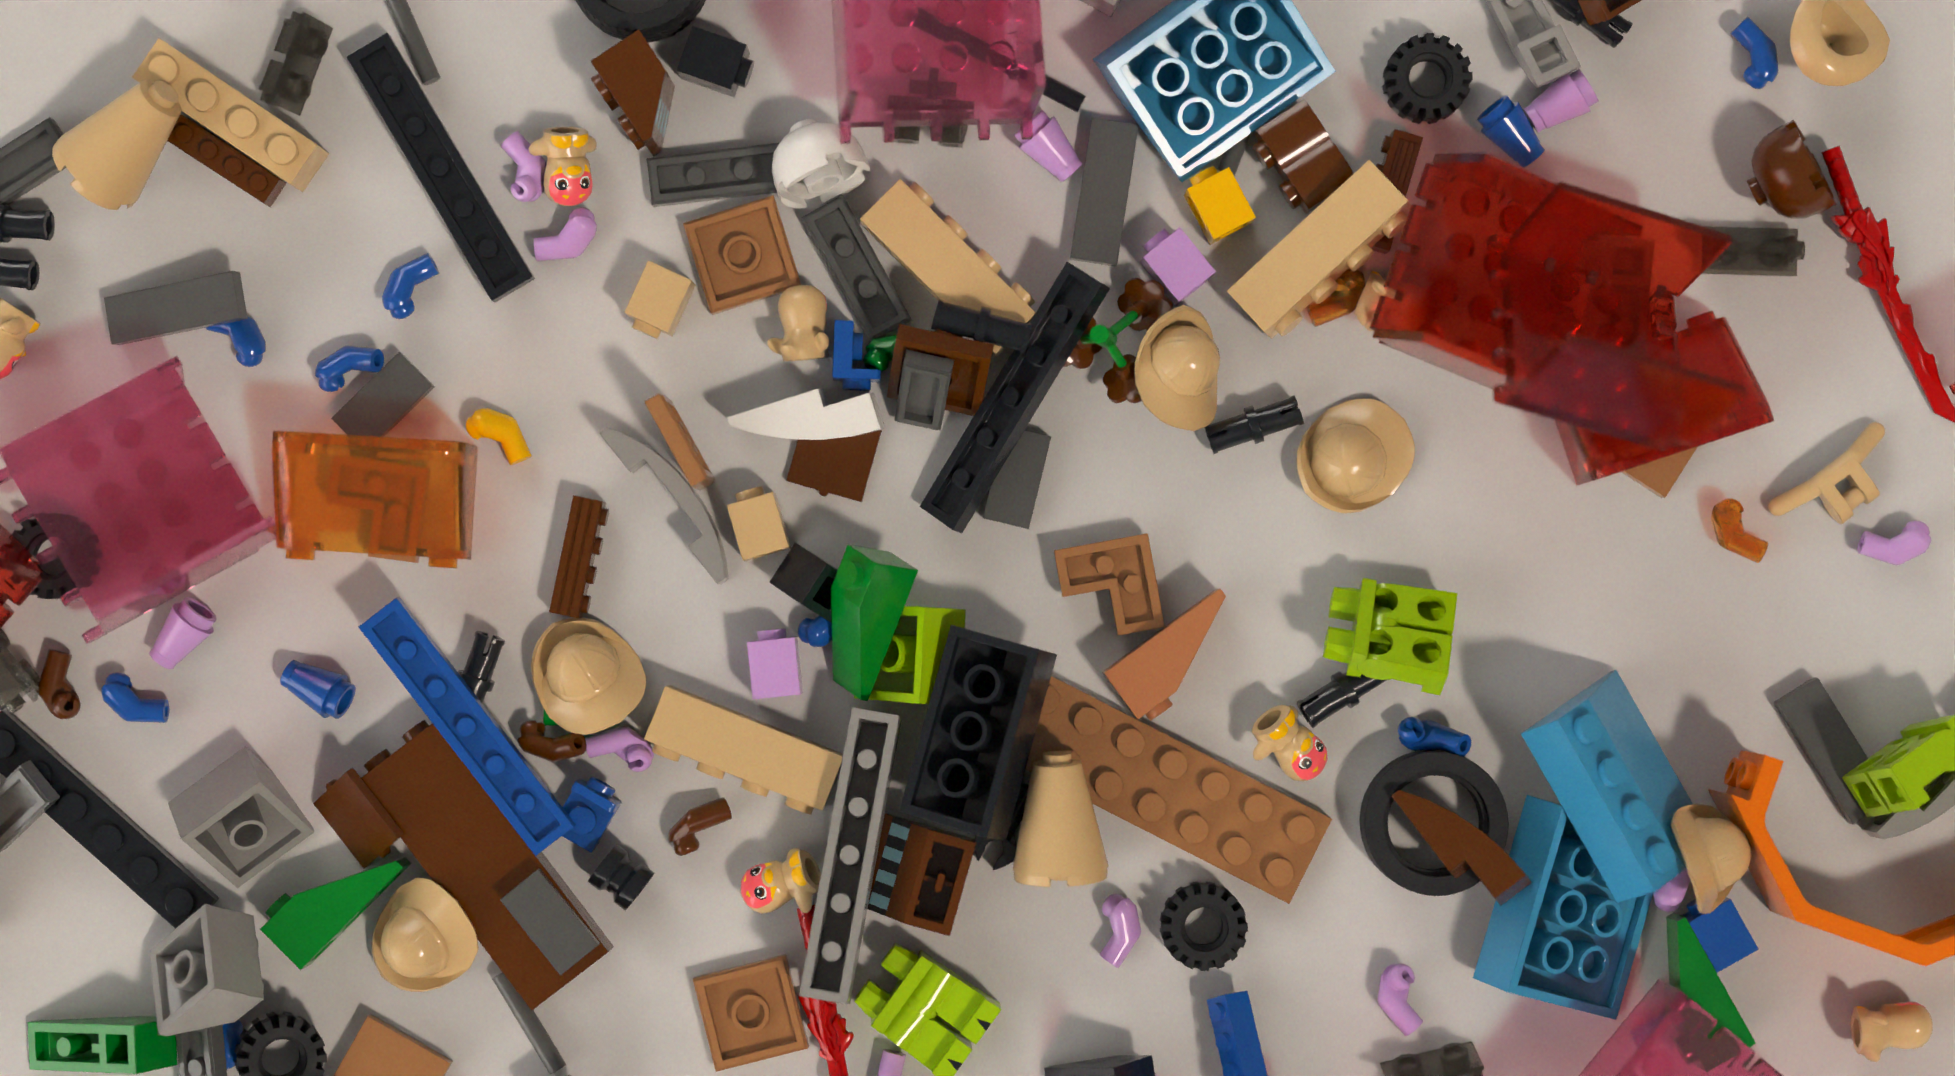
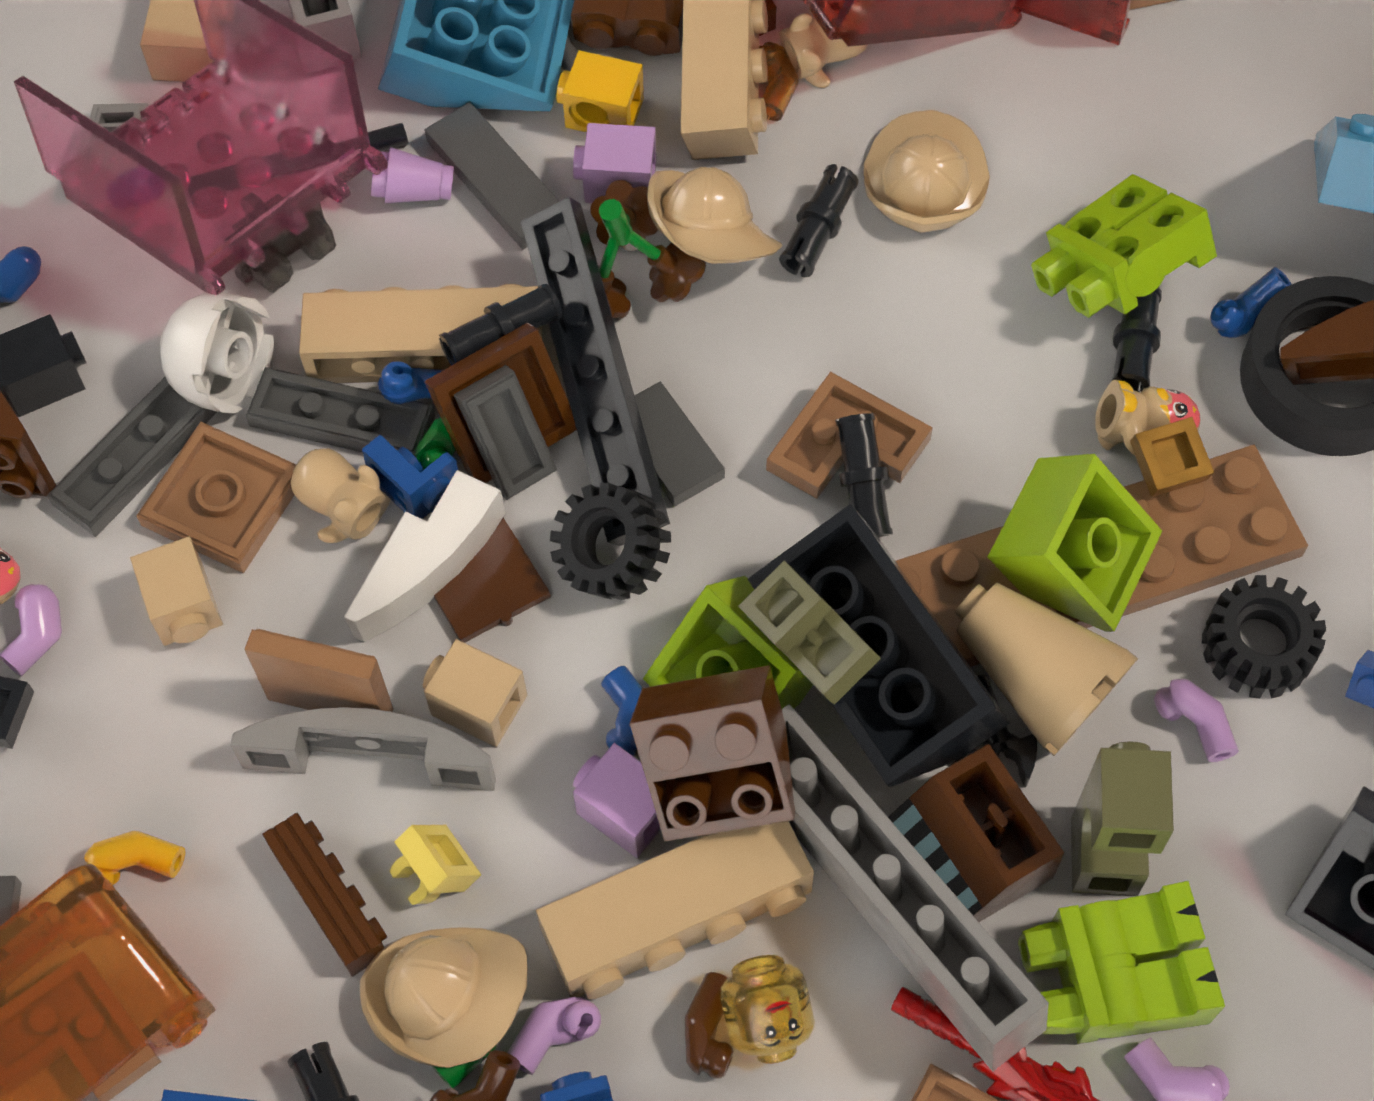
camera: 40 degrees left, 25 degrees down
(647, 600) = (436, 860): none -> light yellow tile
(730, 849) = (767, 1008): none -> clear yellow head
(777, 882) = (847, 993): tan animal -> none
(806, 580) = (579, 684): black brick -> none
(828, 706) = (715, 753): none -> reddish brown slope
(865, 613) = (643, 631): green slope -> none
(891, 511) = (580, 537): none -> black tyre
(911, 294) = (404, 384): none -> blue arm
(945, 695) = (809, 632): none -> olive slope
(993, 951) = (1121, 819): none -> olive arch
(1093, 618) = (864, 471): none -> black pin
(1154, 779) = (1076, 540): none -> lime slope
(1159, 664) = (965, 458): nougat slope -> none
(1266, 785) = (1171, 456): none -> pearl gold tile

